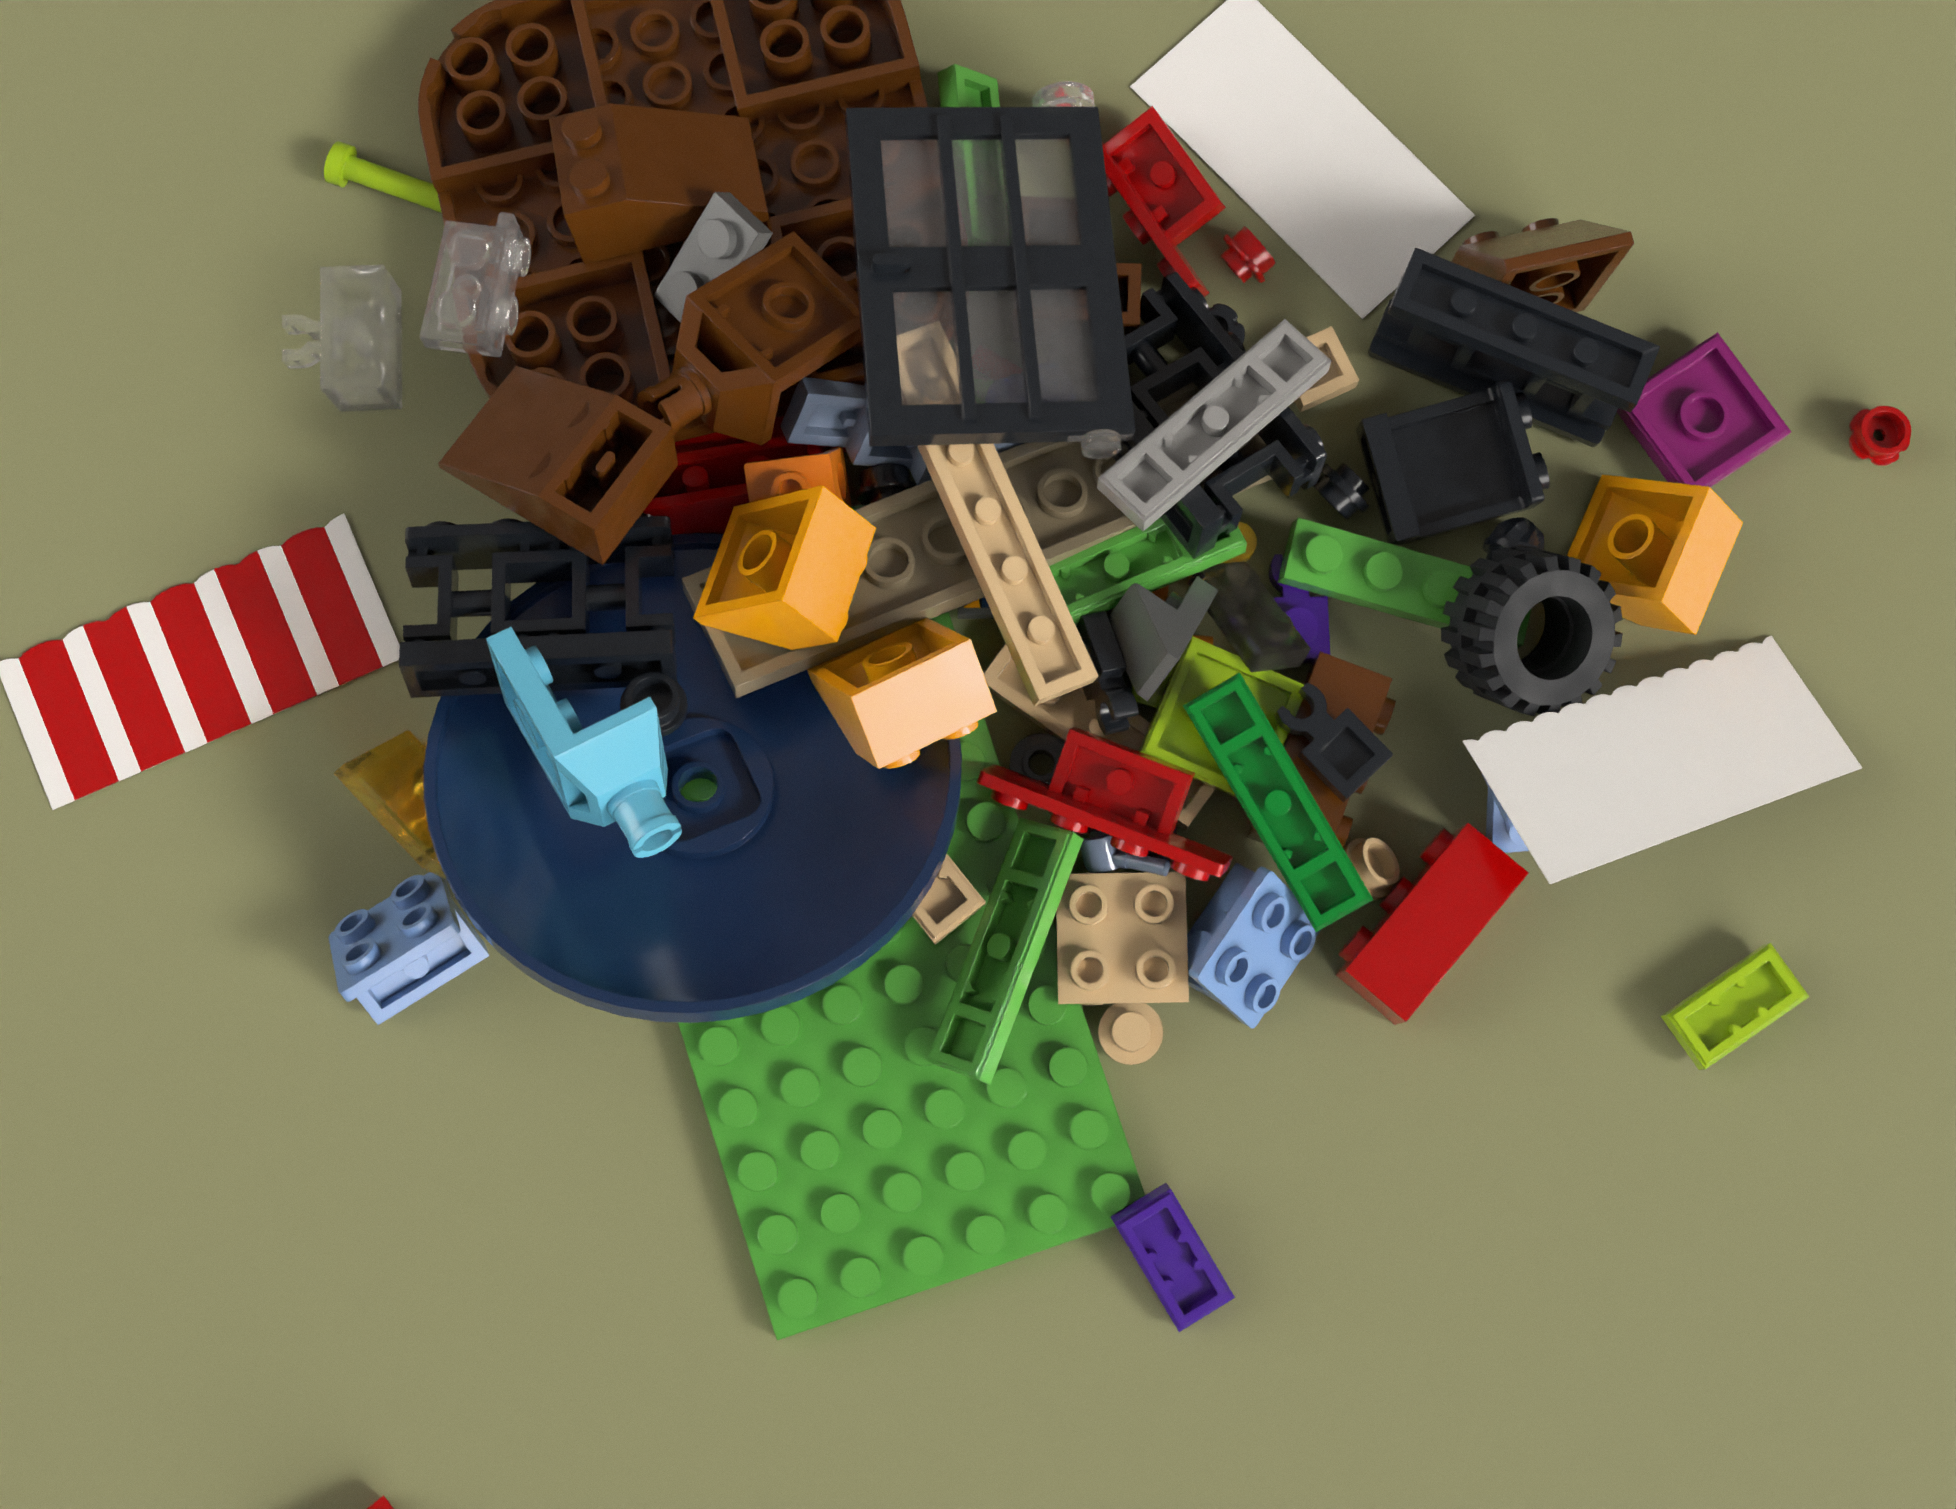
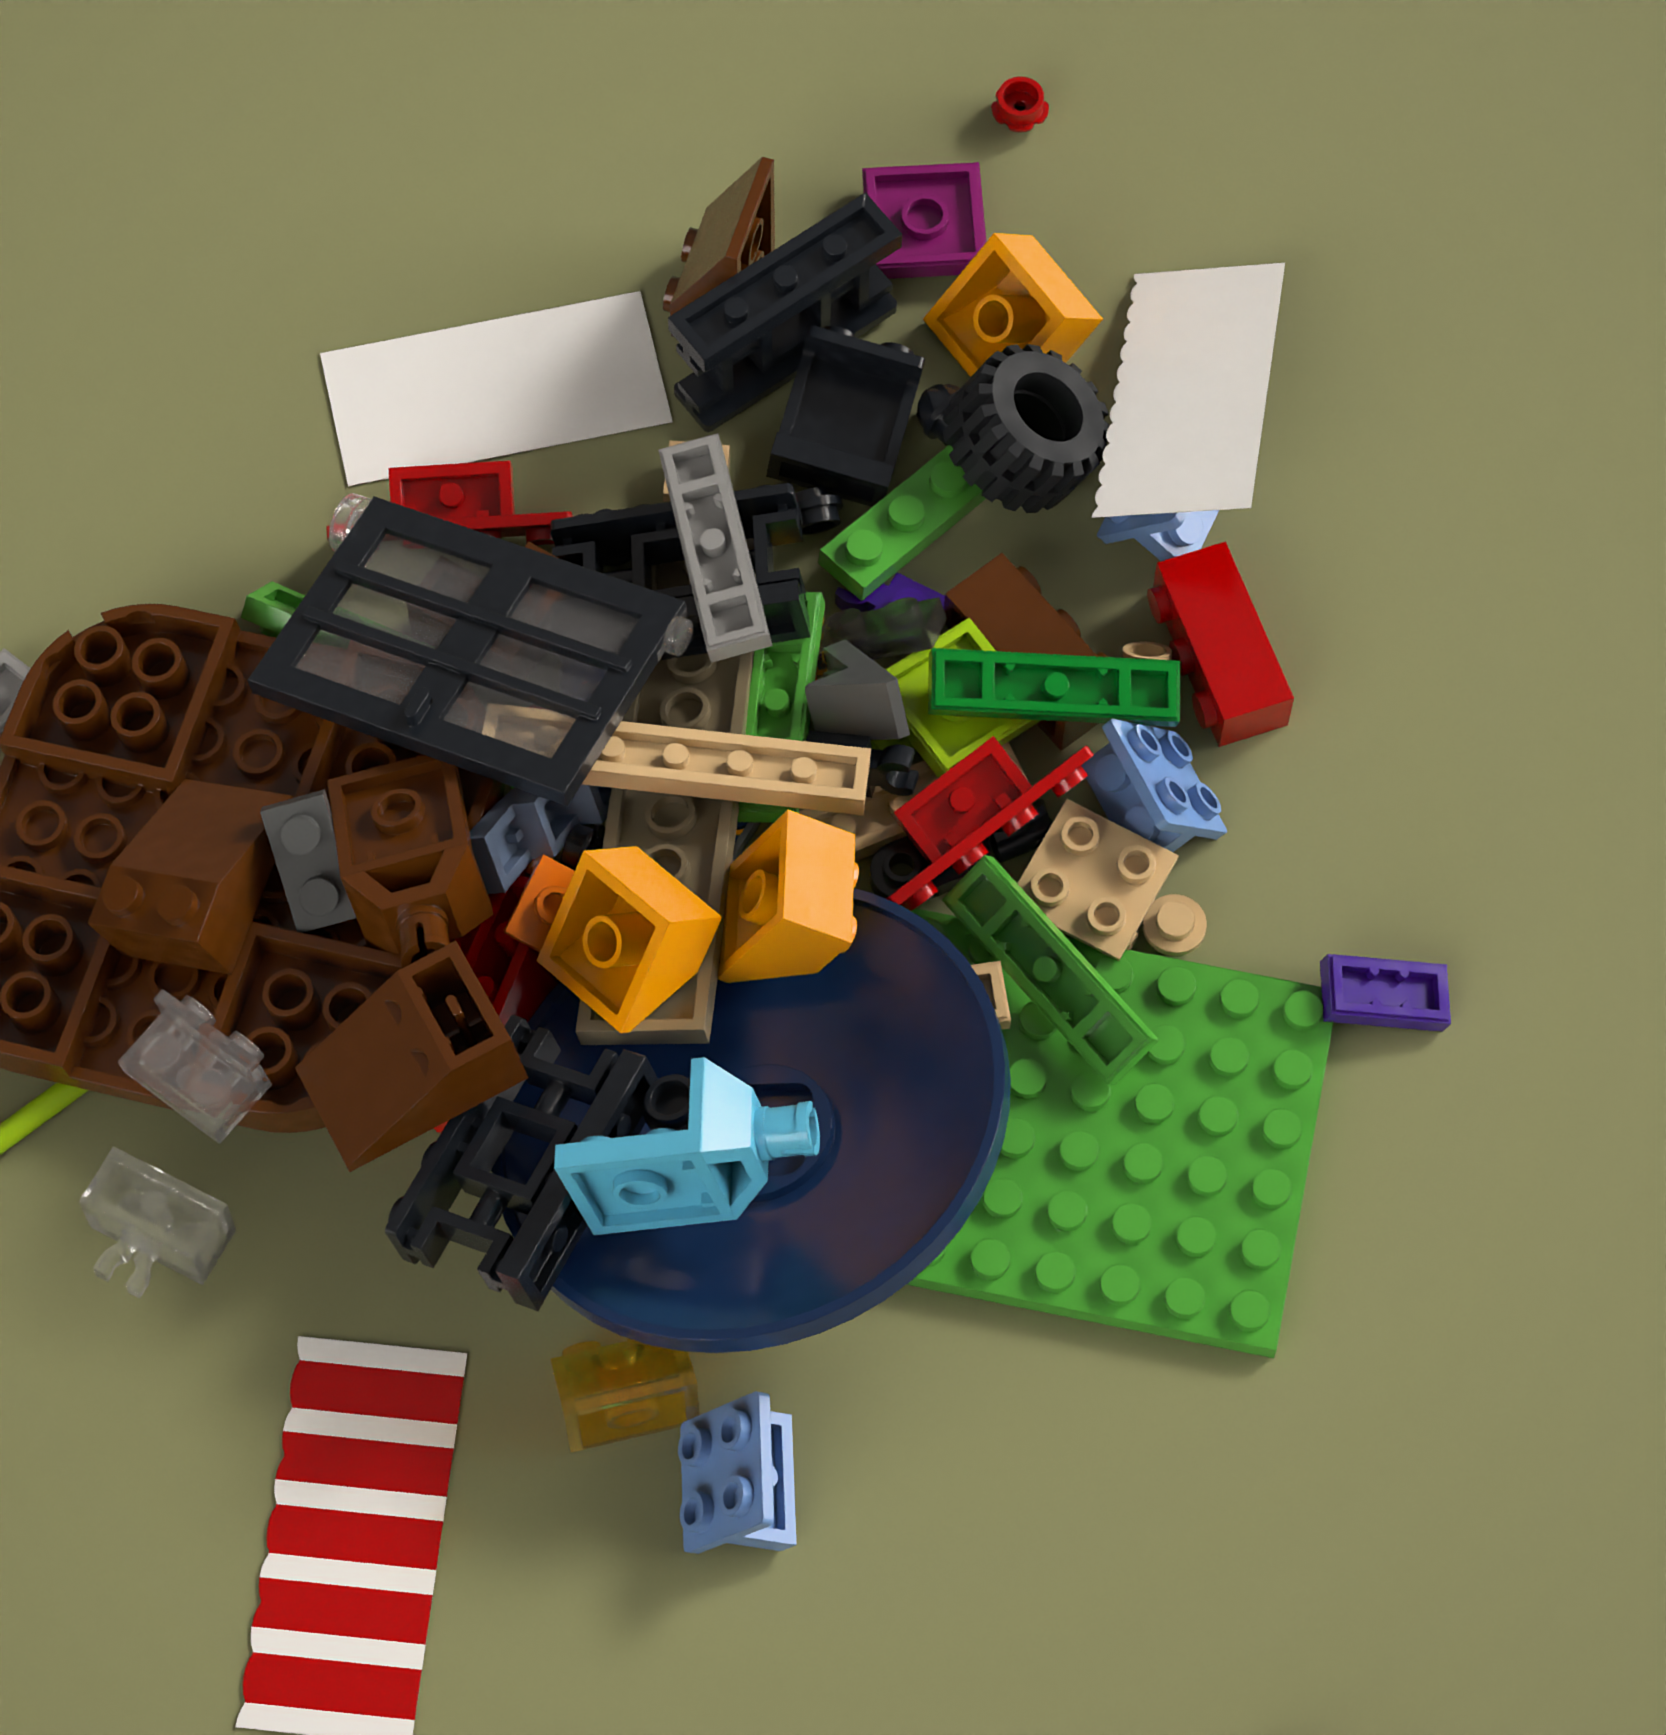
camera: 60 degrees left, 15 degrees down
(1102, 857) = (1016, 857): sand blue hand -> none
(1247, 256) = (563, 473): red plate -> none
(1339, 749) = (1038, 615): black plate -> none
(1734, 1006) = (1422, 463): lime plate -> none

